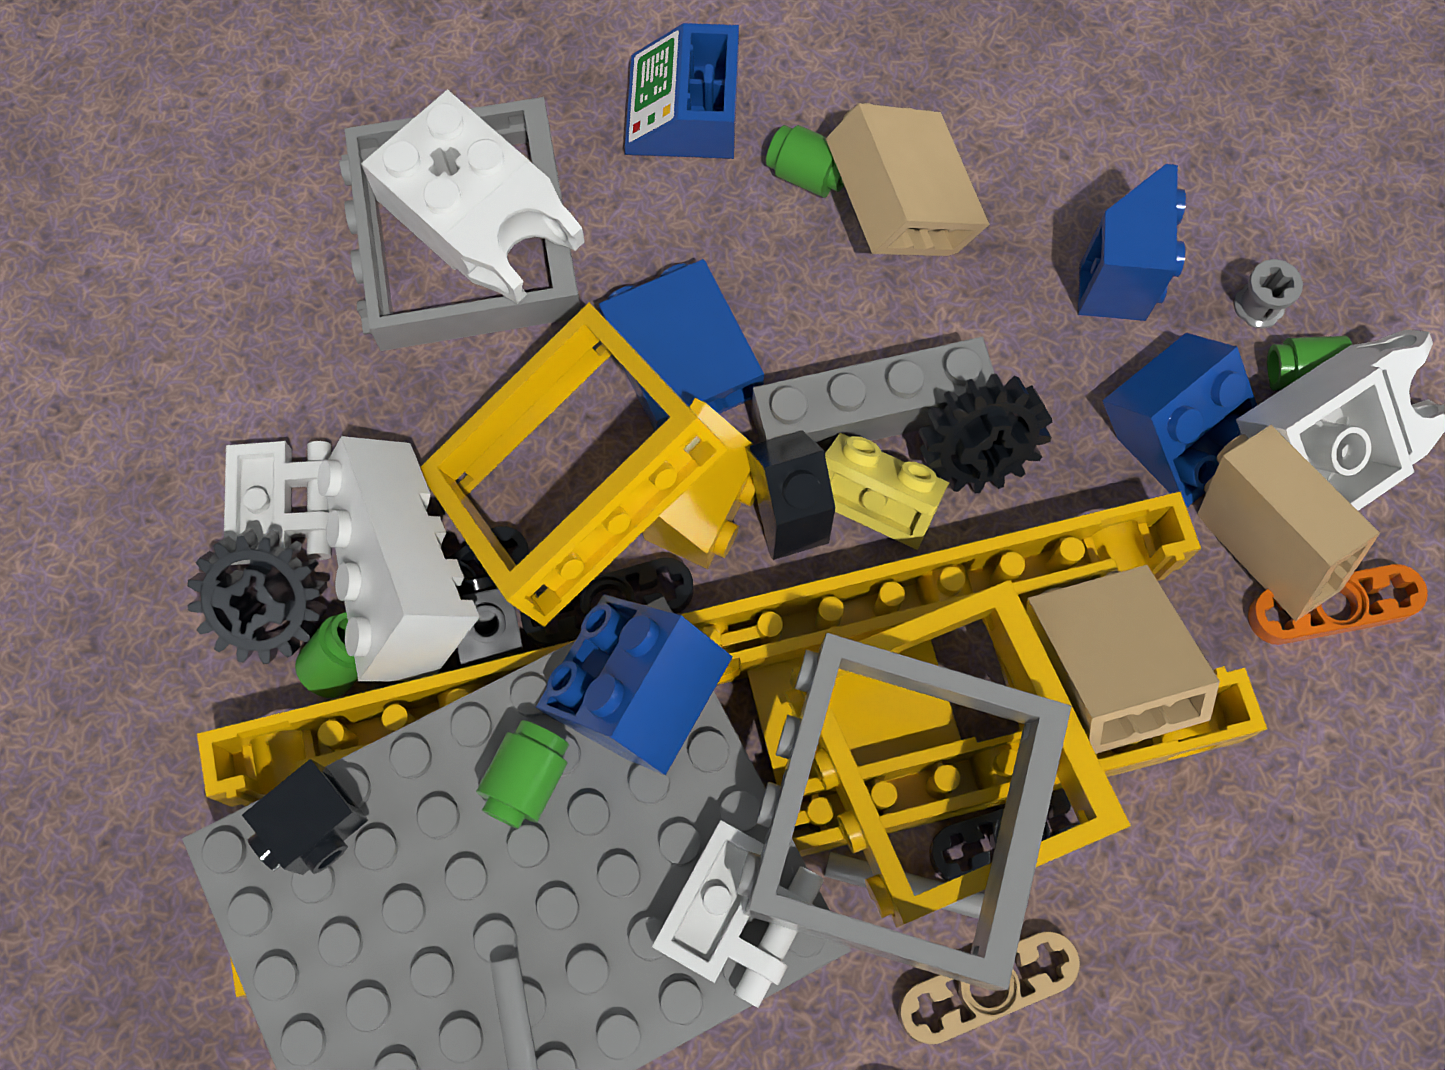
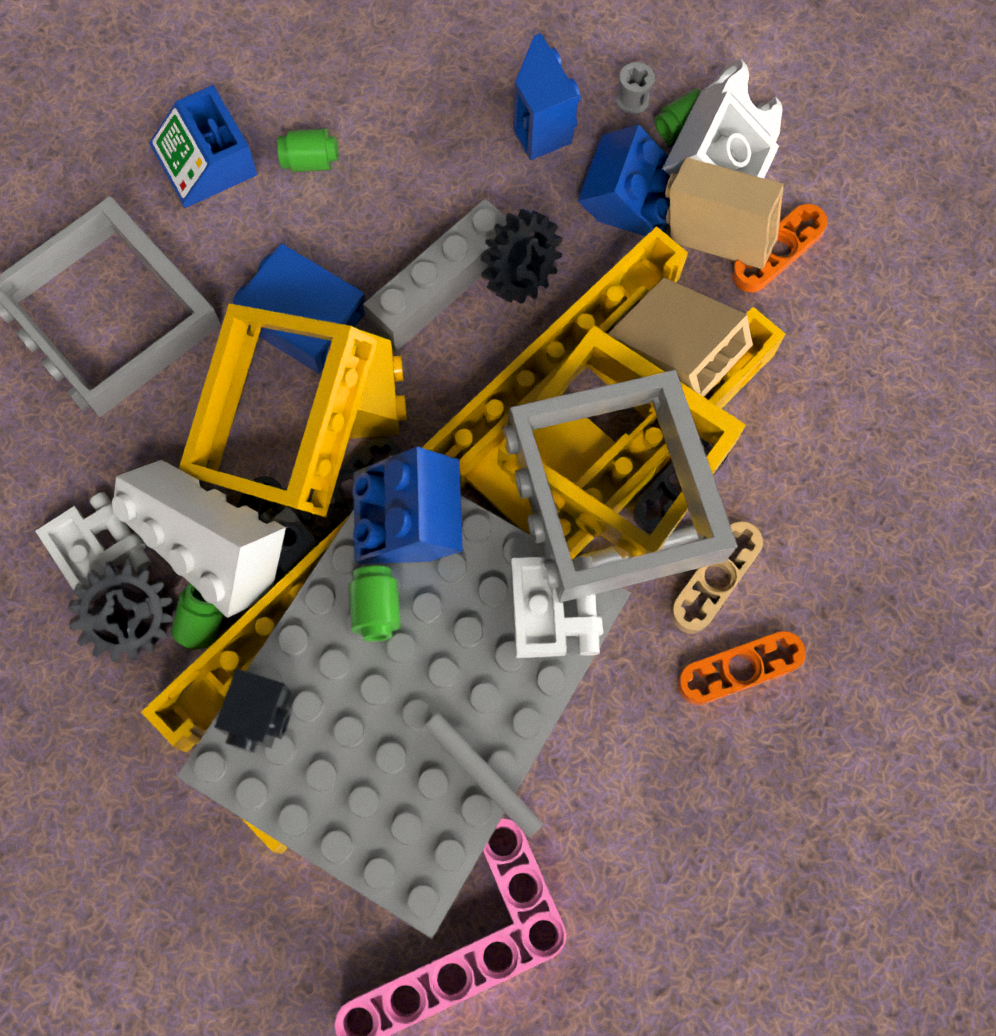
camera: 35 degrees left, 0 degrees up
(468, 193) = (103, 280): white brick -> none
(792, 493) = (427, 354): black slope -> none
(882, 490) = (477, 325): light yellow bracket -> none
(906, 181) = (378, 129): tan brick -> none

